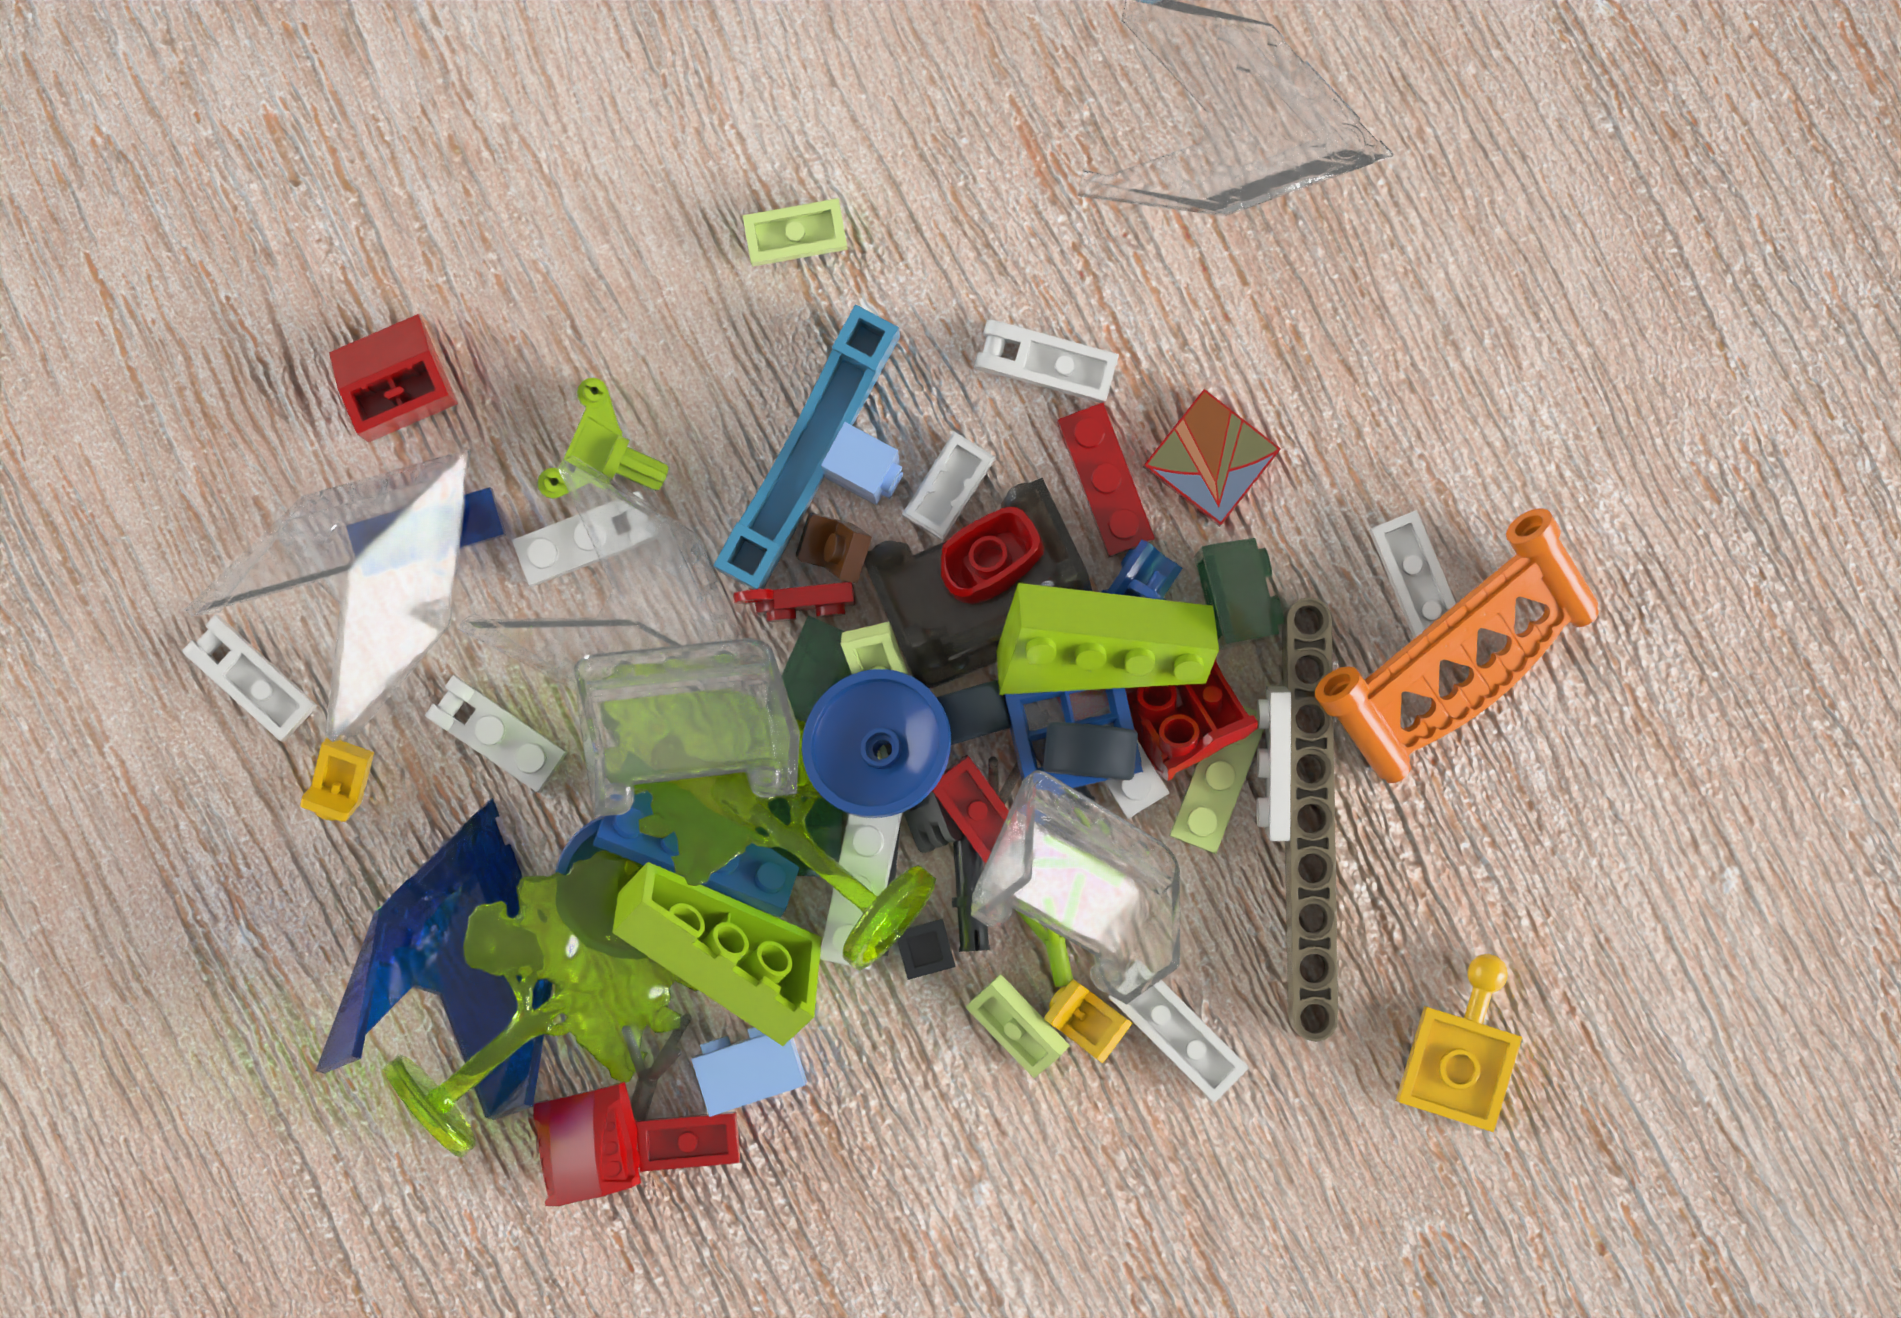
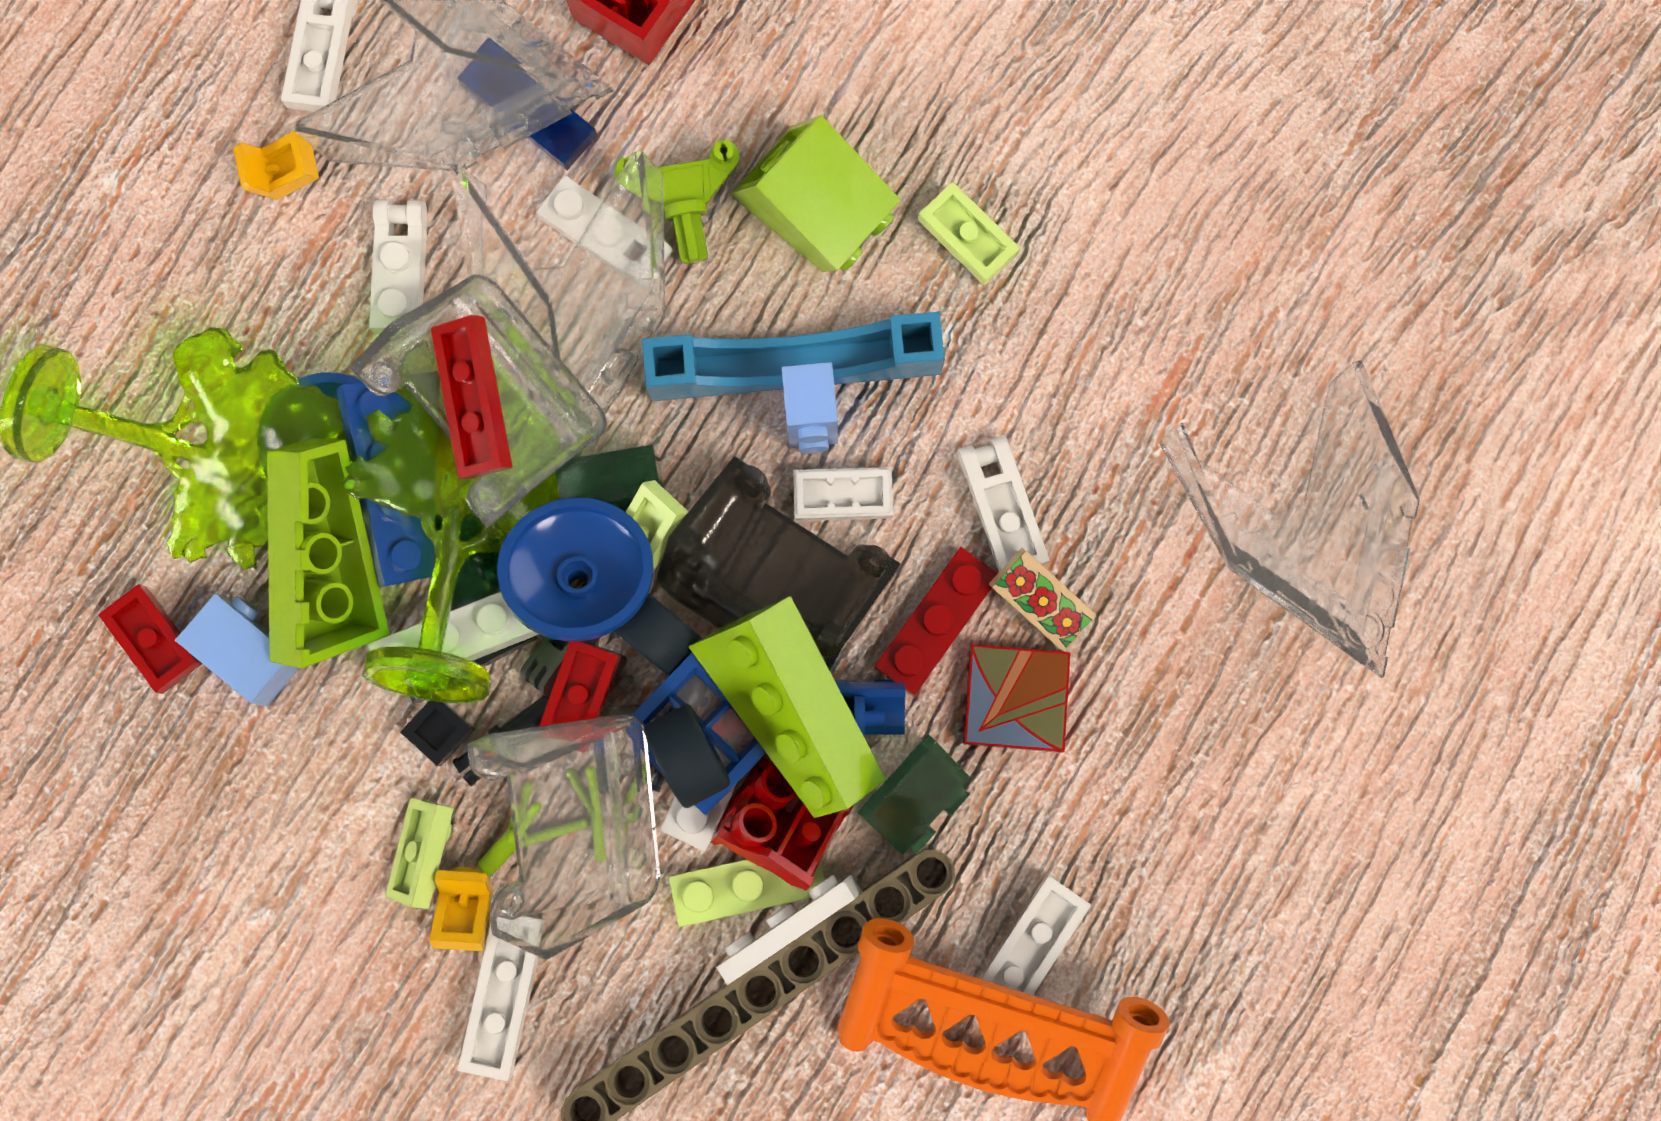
camera: 55 degrees right, 5 degrees down
(420, 945) = (171, 300): clear blue windscreen -> none
(587, 1145) = (91, 558): red slope -> none
(648, 1077) = (186, 570): clear smoke plant -> none
(676, 337) = (818, 195): none -> lime slope
(681, 735) = (471, 397): none -> red plate
(782, 604) = (654, 422): red hinge -> none
(834, 545) = (728, 429): reddish brown bracket -> none
(990, 555) = (805, 563): red piece -> none
(1146, 381) = (1042, 599): none -> tile

